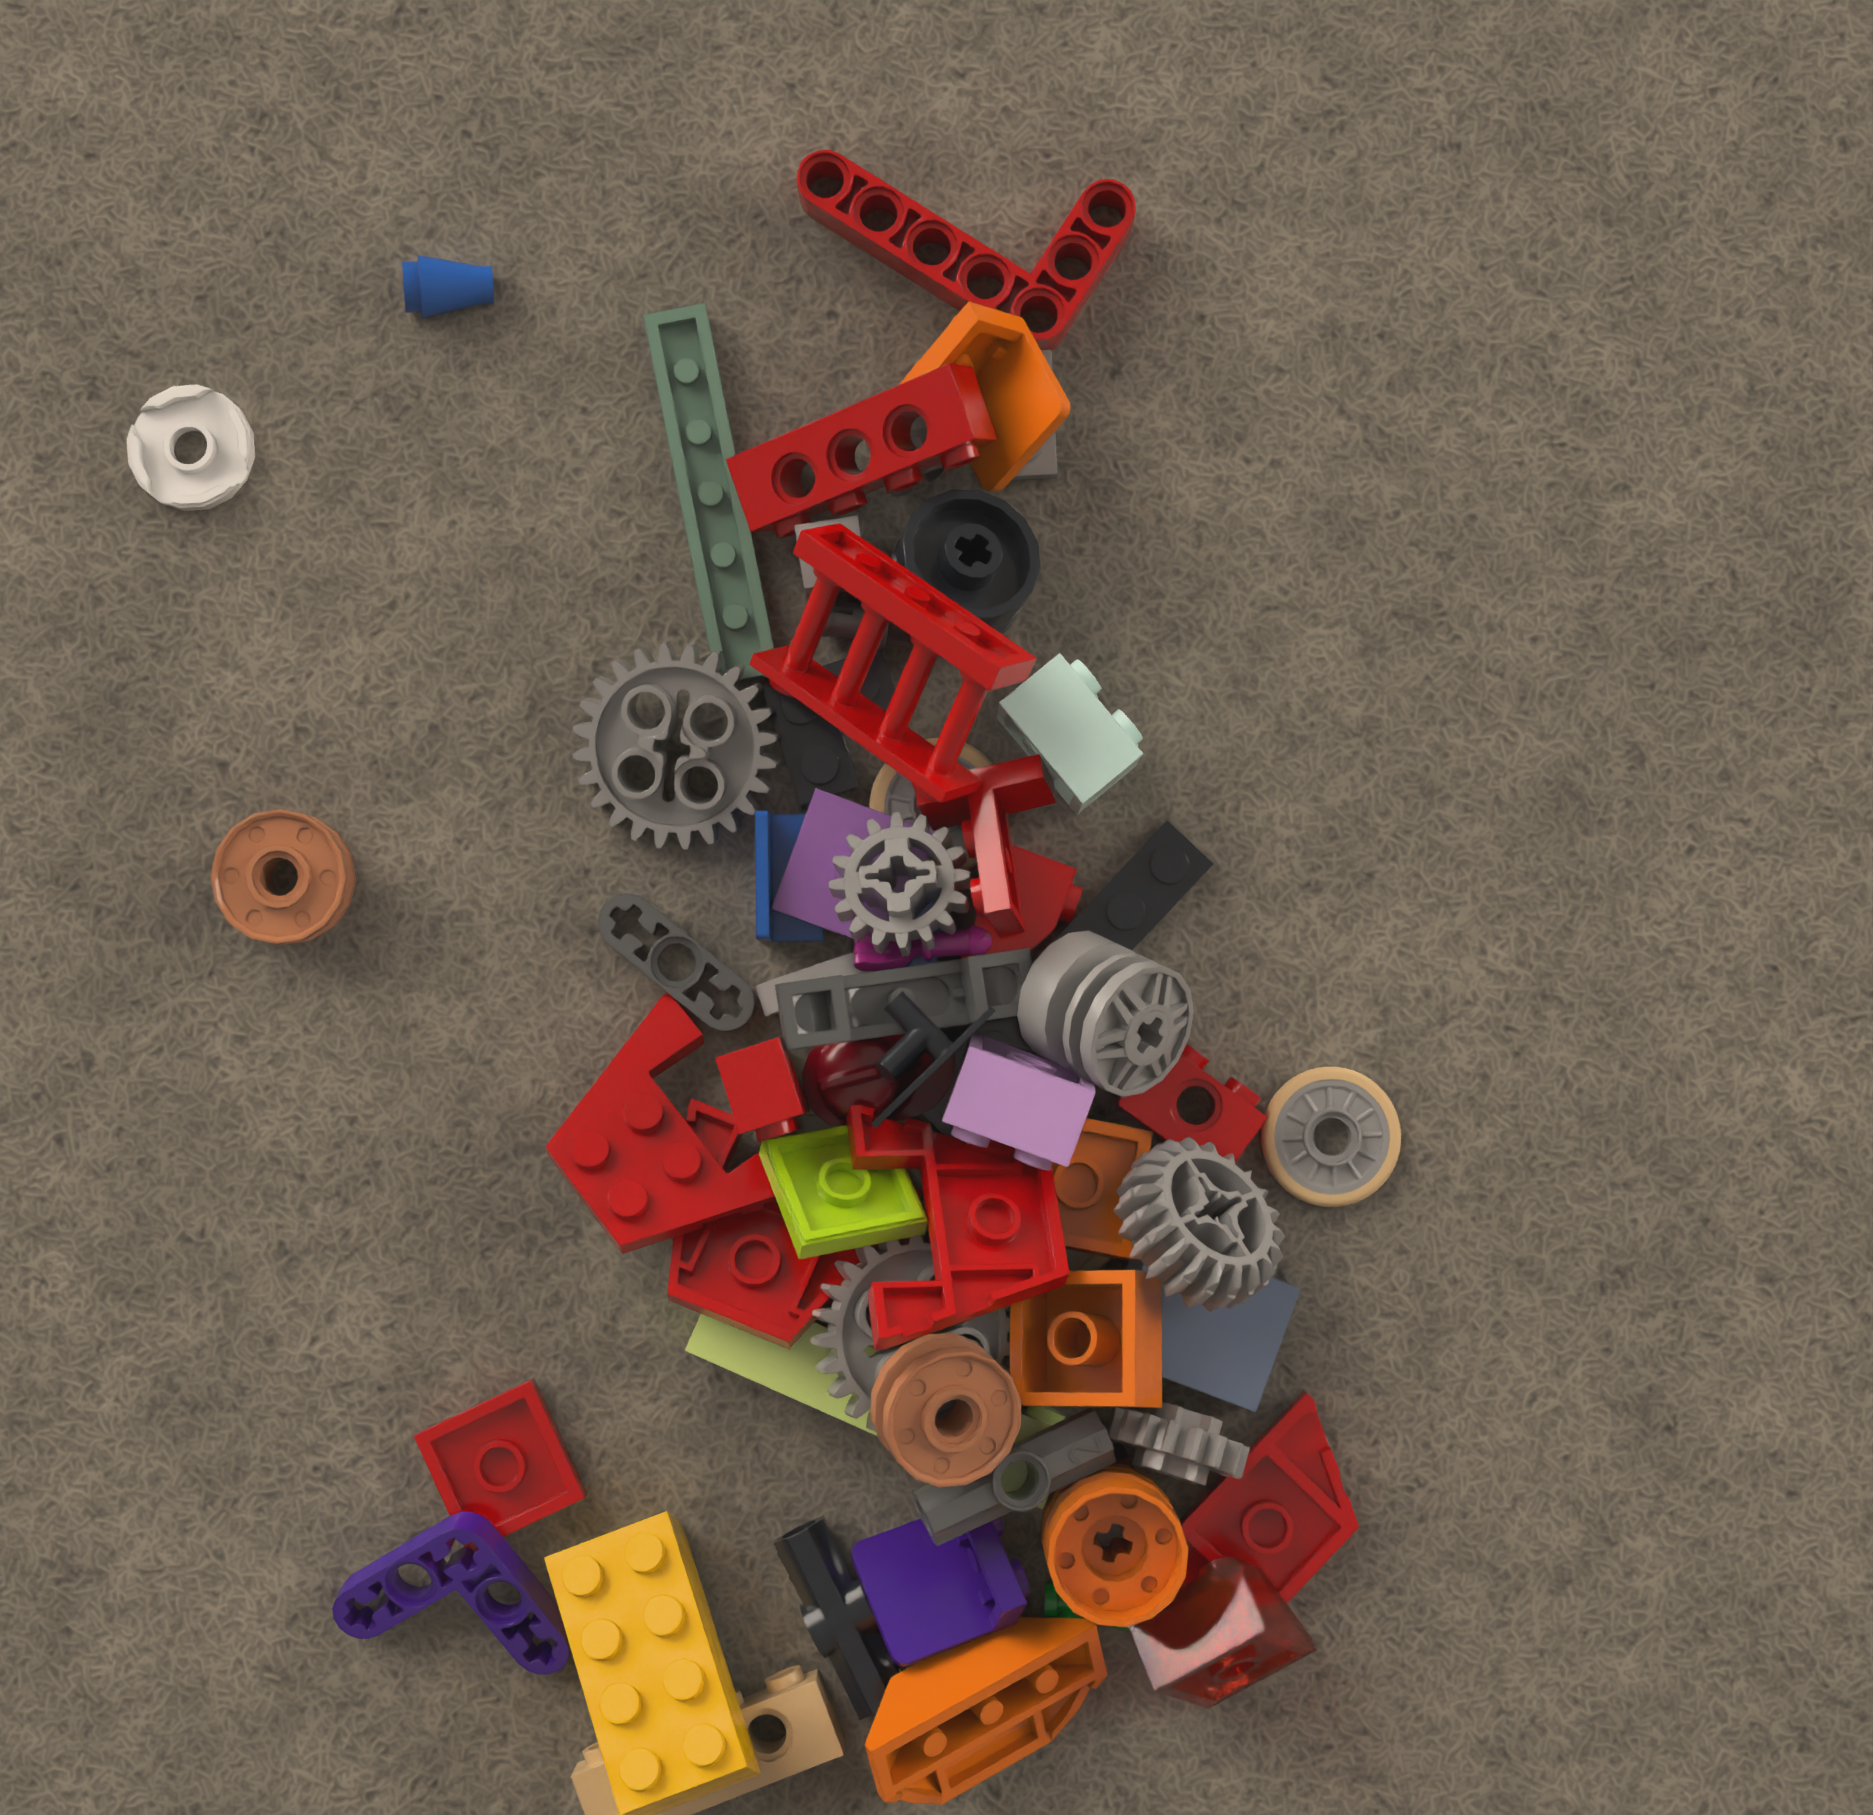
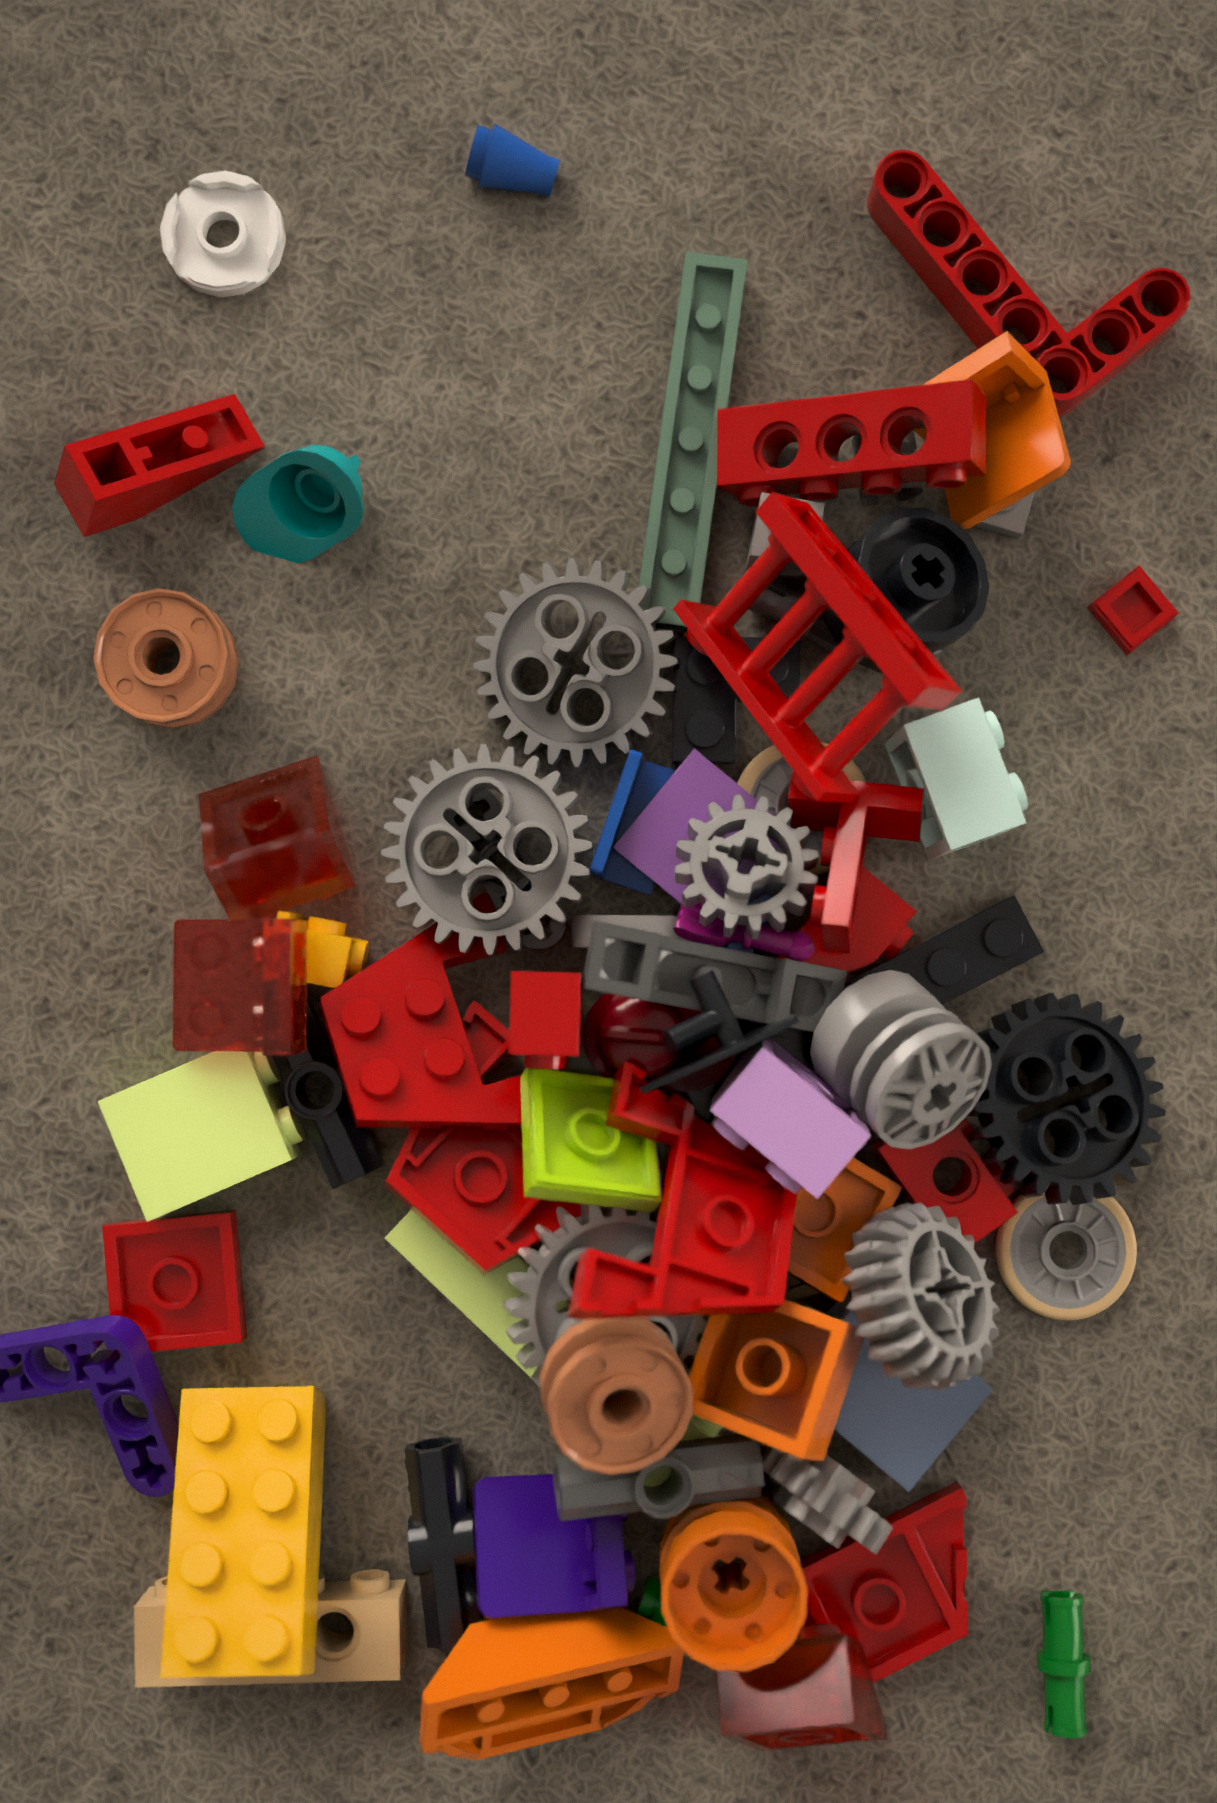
camera: 25 degrees right, 0 degrees up
(204, 693) = (152, 462): none -> red slope
(360, 684) = (300, 503): none -> teal piece
(447, 1014) = (274, 841): none -> clear red slope
(466, 1161) = (240, 986): none -> clear red bracket
(476, 1308) = (201, 1129): none -> yellowish green brick
(525, 1106) = (331, 953): none -> yellow brick
(541, 1205) = (340, 1145): none -> black piece
(631, 1005) = (448, 892): none -> light grey gear
(1187, 509) = (1132, 610): none -> red tile
(1314, 1039) = (1086, 1155): none -> black gear
(1459, 1523) = (1063, 1664): none -> green pin

